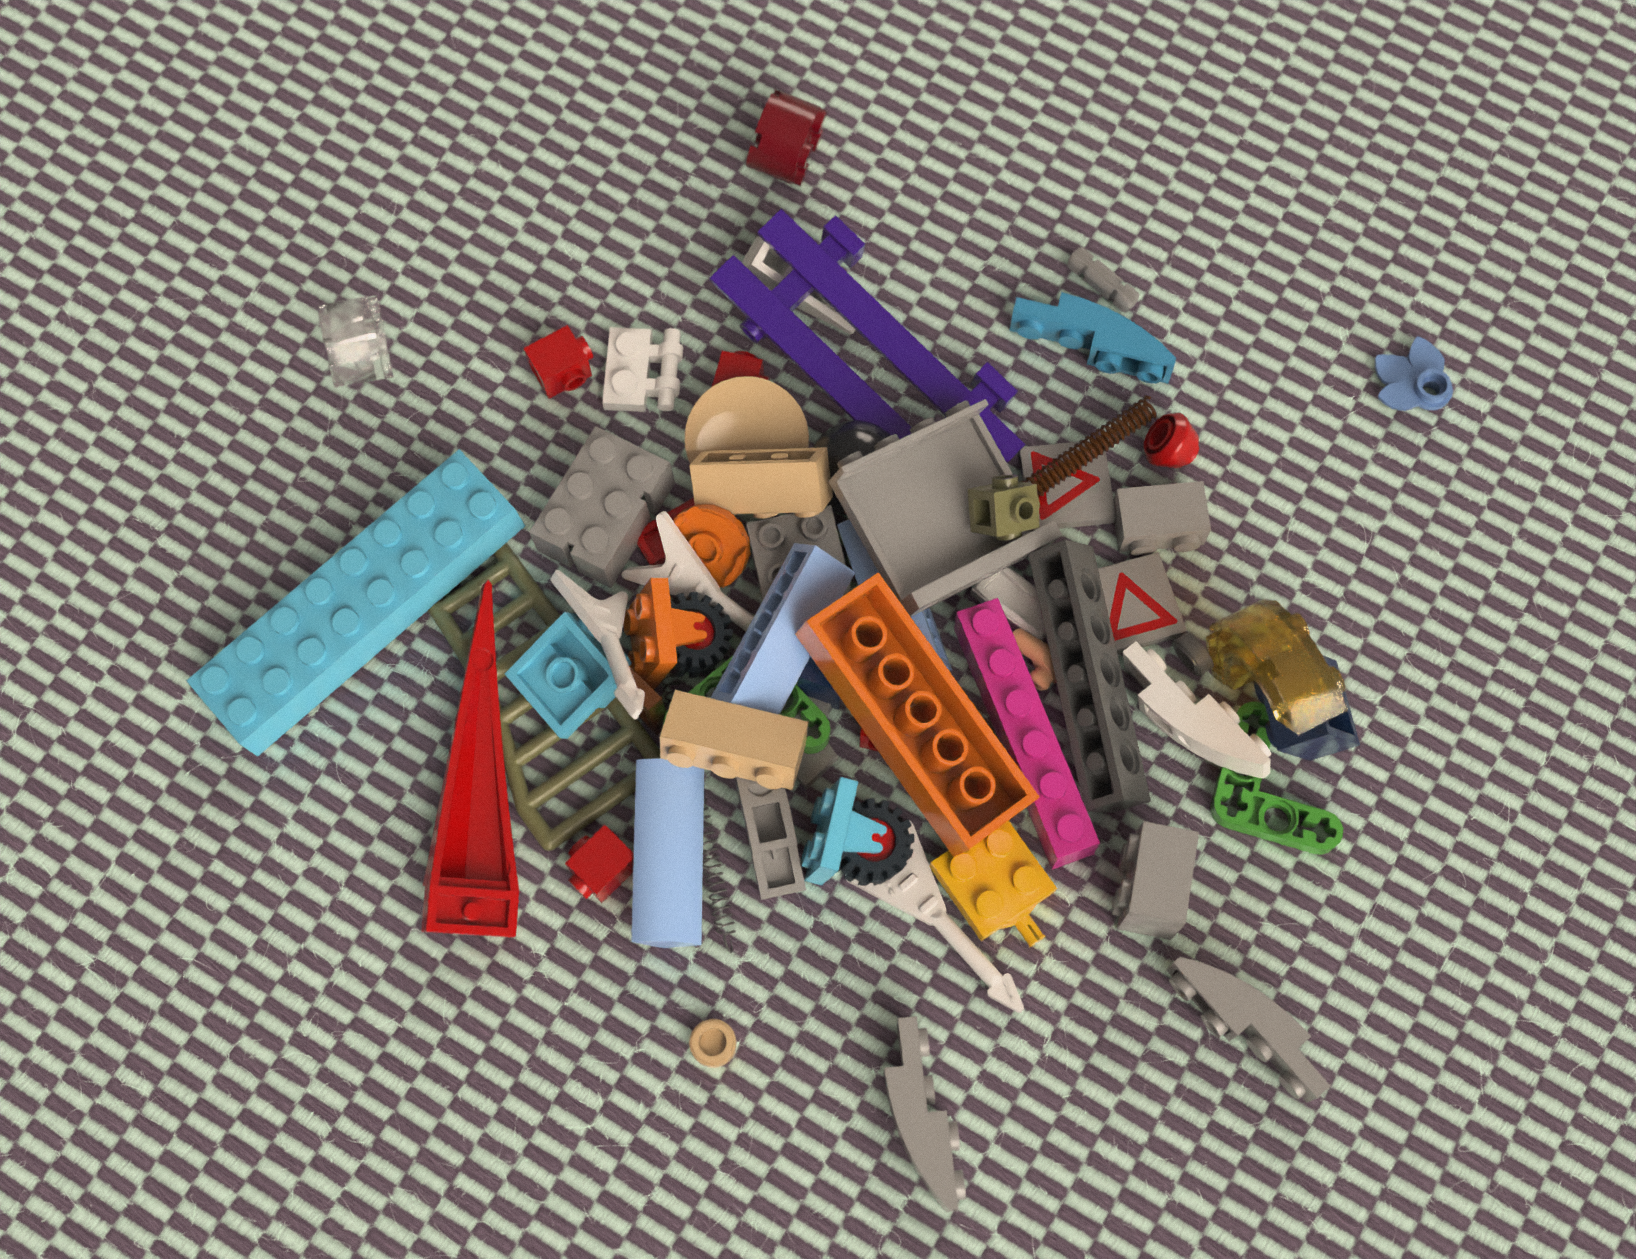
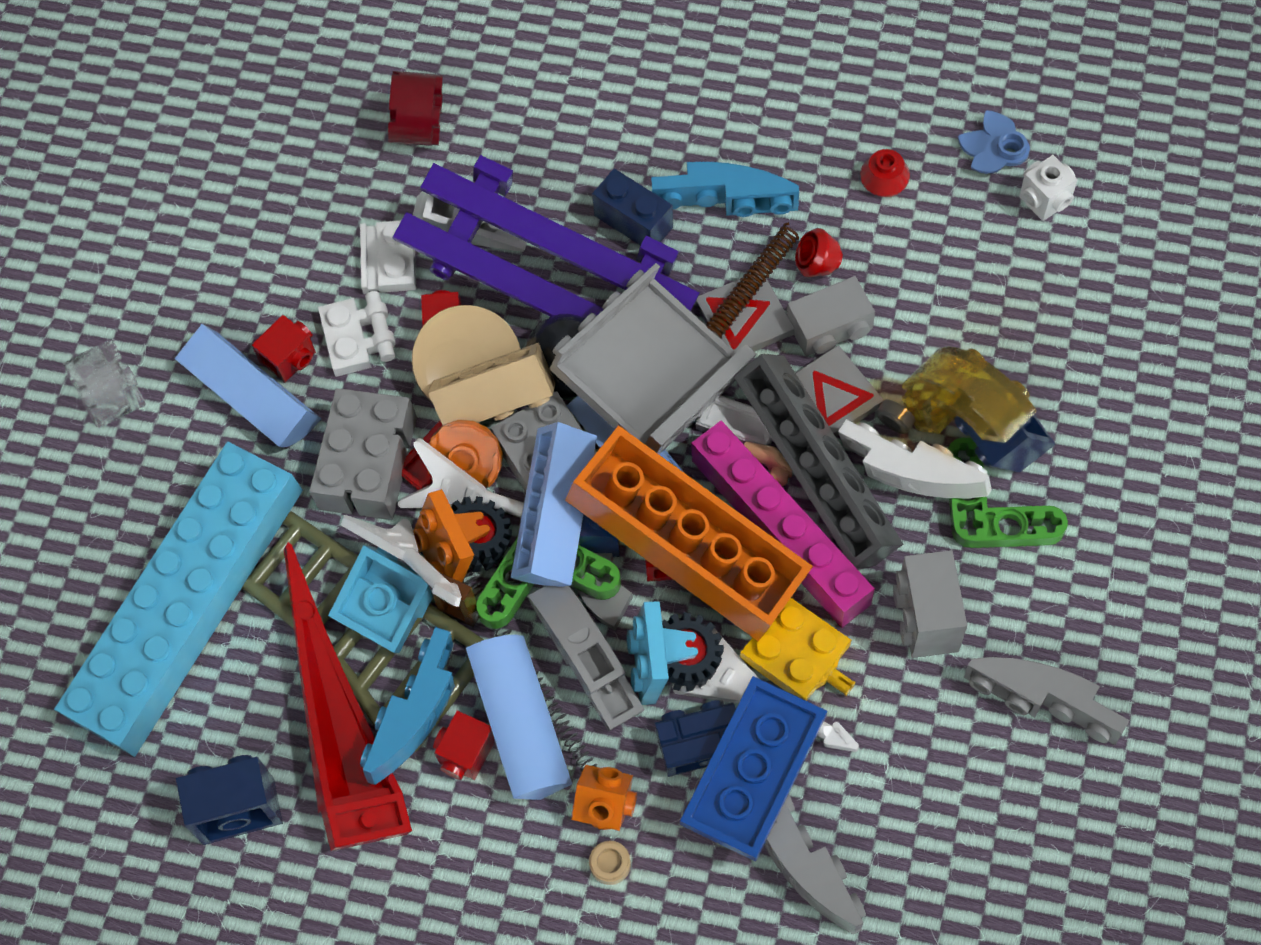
camera: 15 degrees left, 5 degrees down
(333, 839) = (228, 799): none -> dark blue brick
(505, 392) = (247, 387): none -> light blue brick
(547, 821) = (408, 722): none -> dark azure slope
(696, 302) = (385, 262): none -> white plate
(728, 972) = (603, 797): none -> orange brick
(733, 740) = (543, 603): tan brick -> none
(855, 941) = (692, 738): none -> dark blue brick
(898, 999) = (753, 768): none -> blue plate
(984, 325) = (632, 208): none -> dark blue brick
(1004, 508) = (701, 345): olive brick -> none
(1103, 279) = (716, 143): light grey axle -> none
(1278, 373) = (885, 173): none -> red cone
(1456, 447) = (1048, 187): none -> white brick

